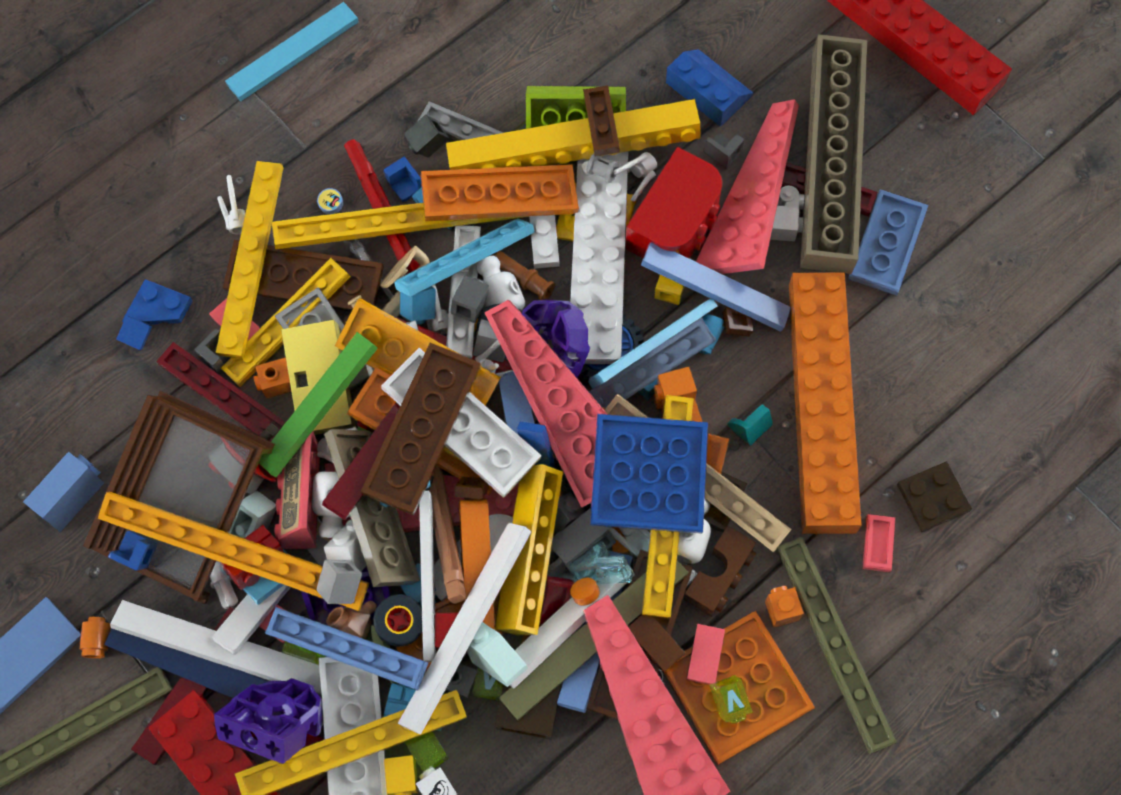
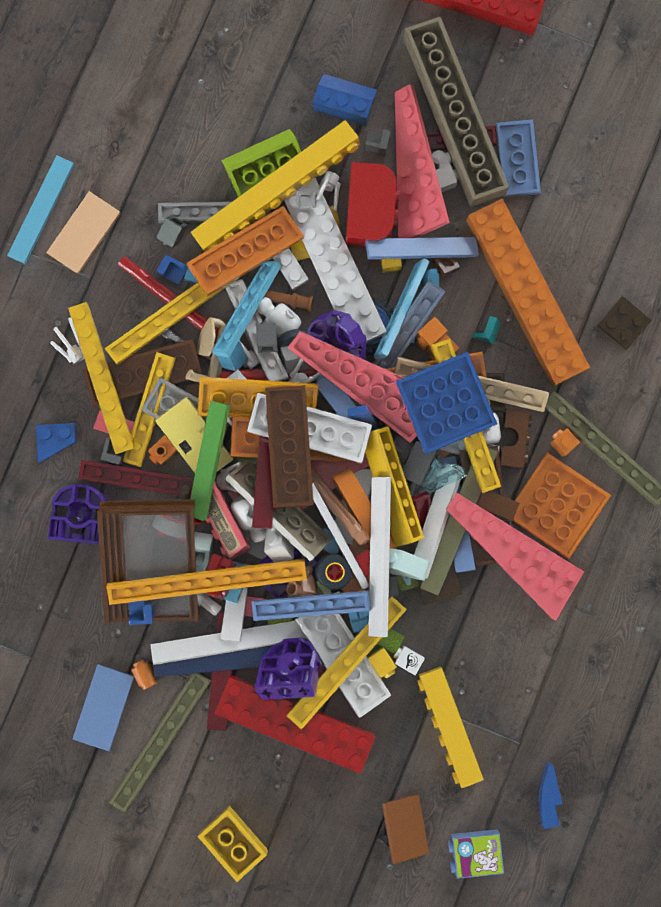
camera: 25 degrees left, 15 degrees up
(65, 490) = (71, 594): medium blue brick -> none
(132, 377) = (61, 526): none -> dark purple connector
(134, 332) = (51, 466): blue tile -> none
(325, 96) = (83, 232): none -> light nougat tile
(330, 201) = (129, 308): tile -> none
(339, 581) = (287, 569): light grey panel -> none
(471, 488) = (335, 466): reddish brown plate -> none
(585, 591) = (439, 495): orange tile -> none
(601, 121) = (291, 167): reddish brown plate -> none
(705, 654) = (530, 496): coral tile -> none
(731, 699) = (560, 517): clear neon green brick -> none
(879, 543) = (603, 370): coral tile -> none

